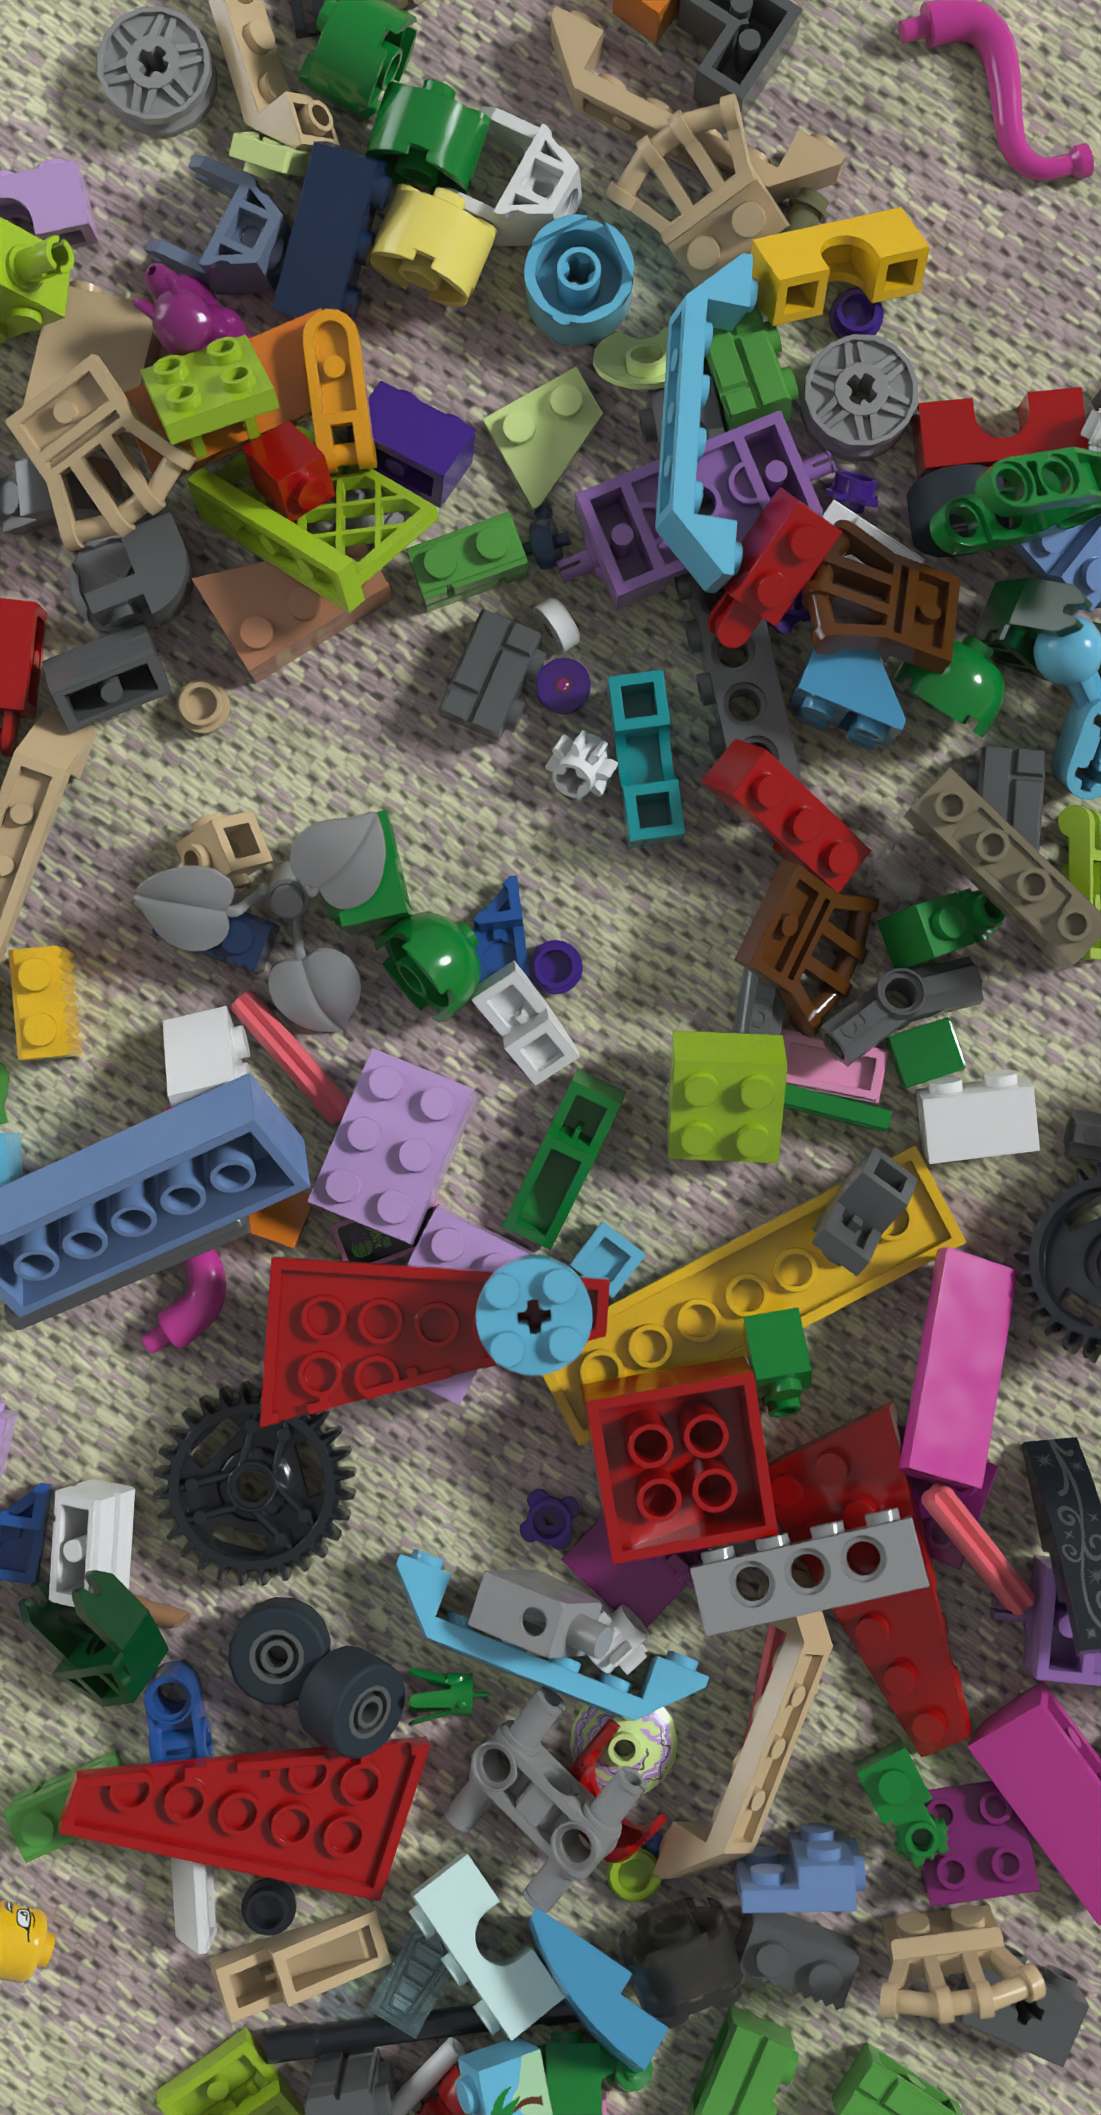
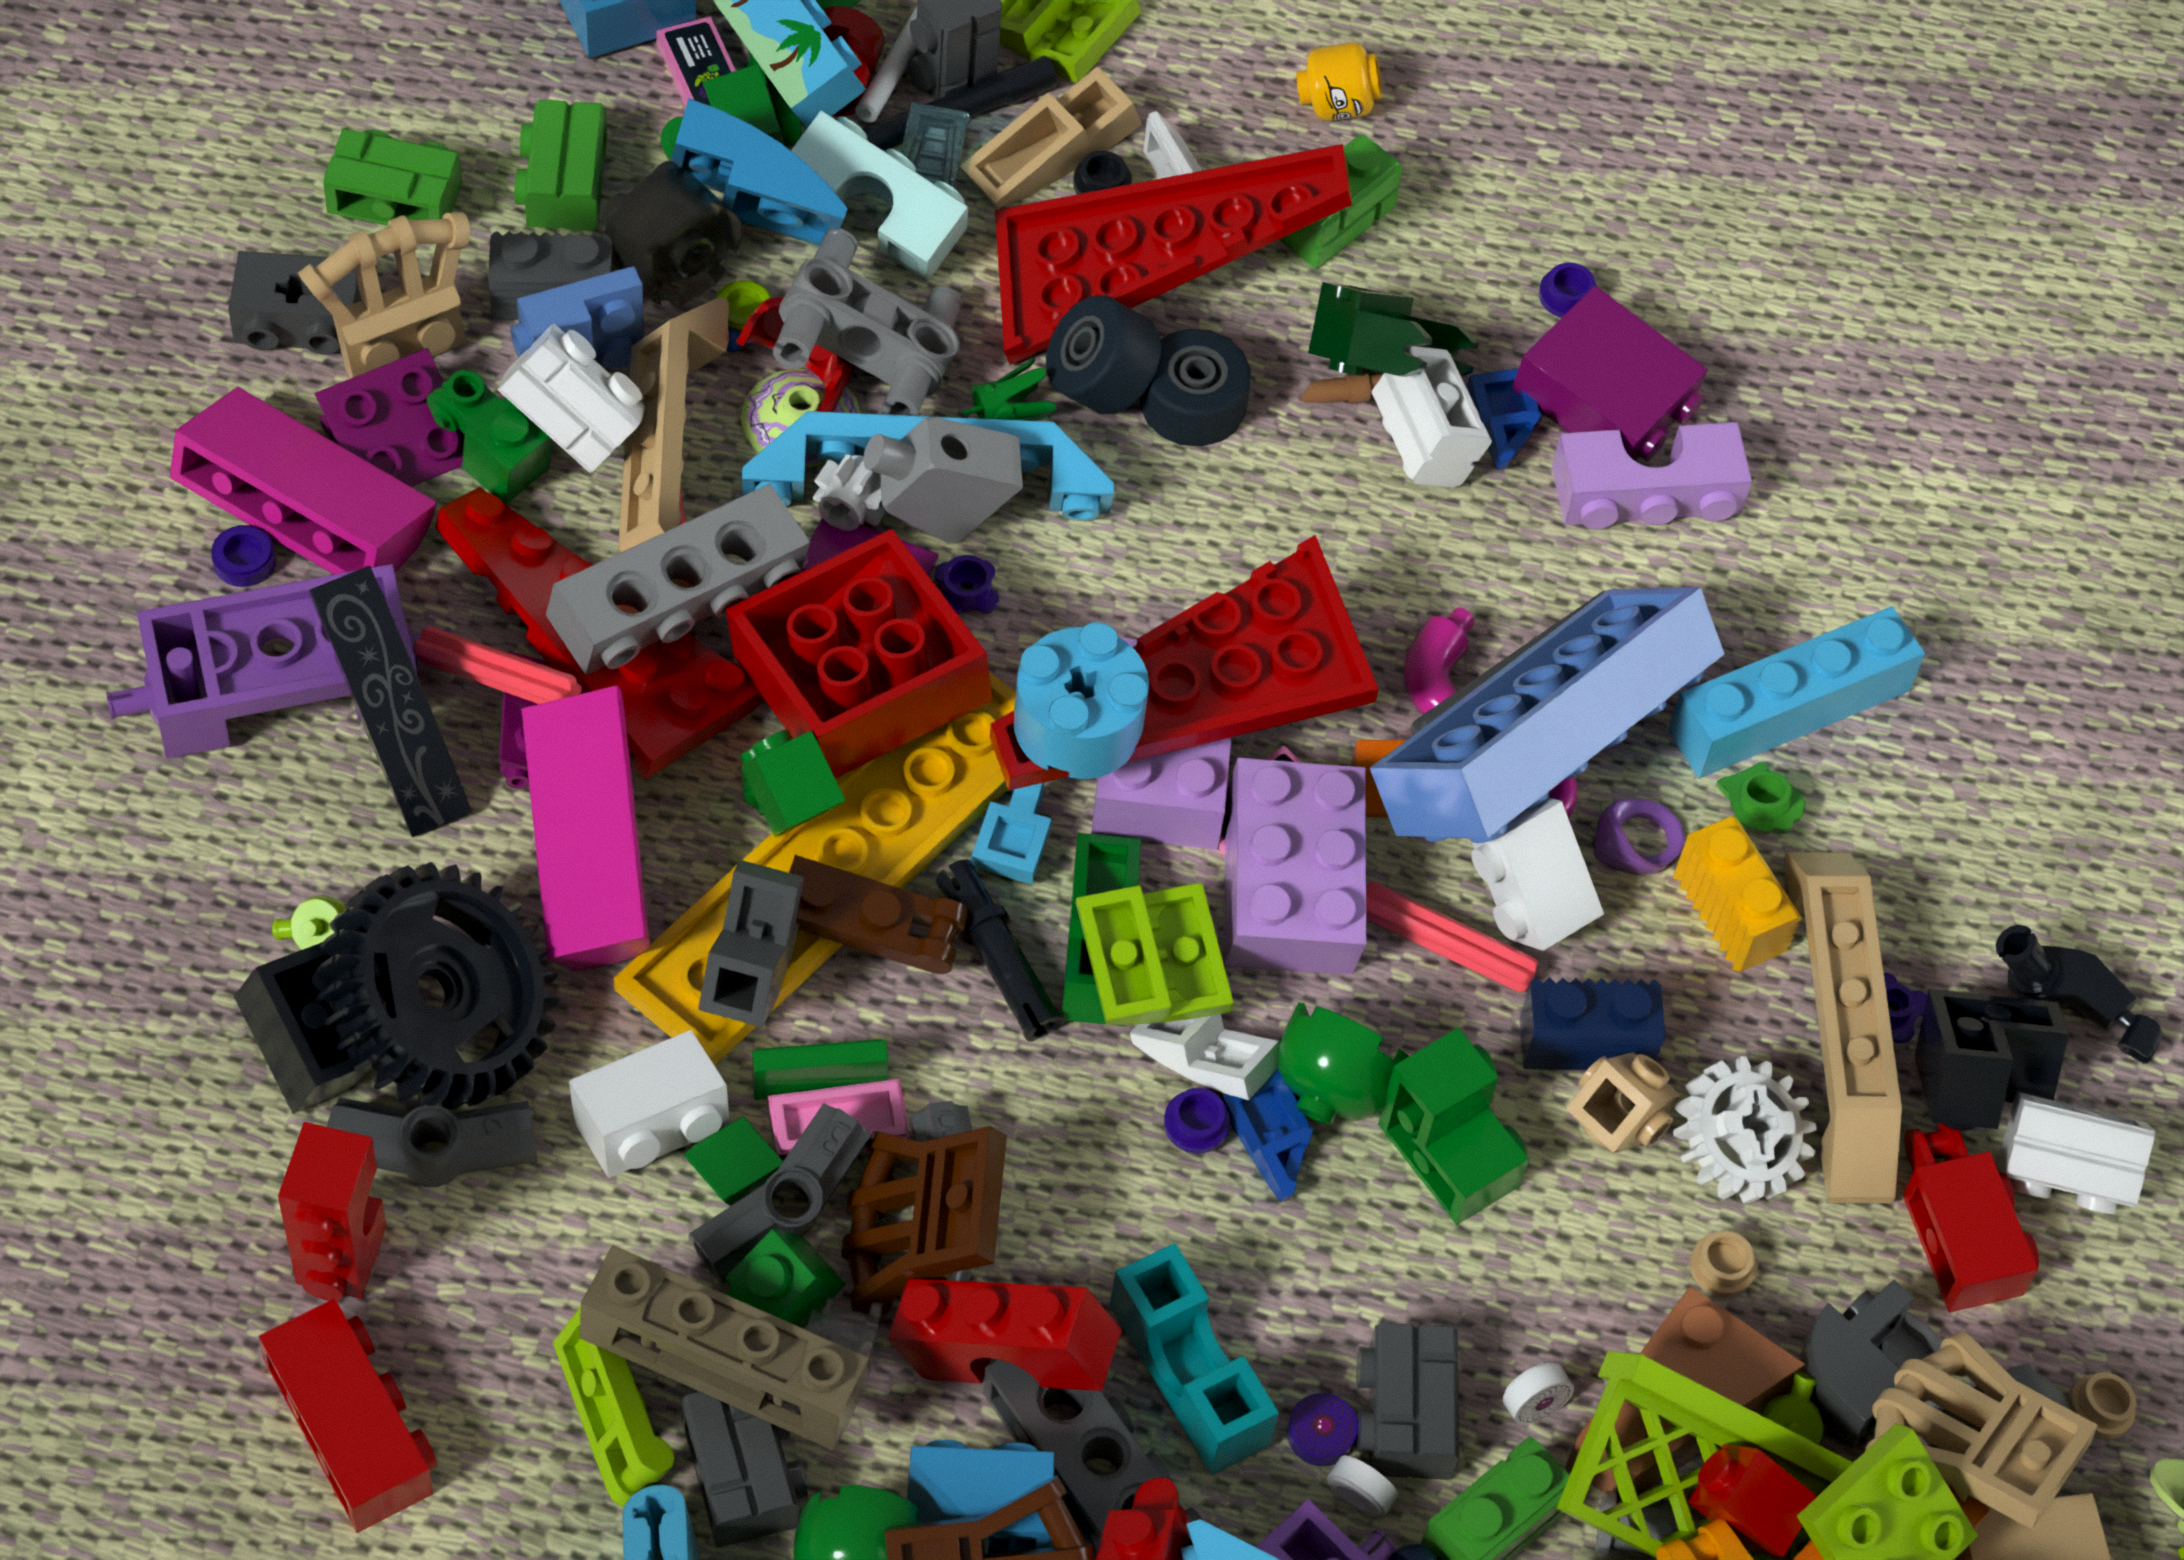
camera: 150 degrees right, 30 degrees down
(106, 677) = (1845, 1240): dark grey brick -> none
(124, 1093) = (1613, 847): none -> medium lavender piece
(138, 799) = (1744, 1130): none -> white gear
(177, 1727) = (1269, 304): blue piece -> none
(212, 1495) = (1335, 492): black gear -> none
(215, 553) = (1796, 1409): none -> lime piece
(330, 857) = (1496, 1072): light grey plant -> none
(394, 650) = (1538, 1393): none -> white tile
(545, 1097) = (1154, 955): none -> lime slope
(581, 765) = (1264, 1333): white gear -> none
(653, 1167) = (1000, 952): none -> black pin
(726, 1096) = (952, 1025): lime brick -> none
(750, 1223) = (877, 916): none -> reddish brown plate
(835, 1797) = (573, 396): none -> white brick

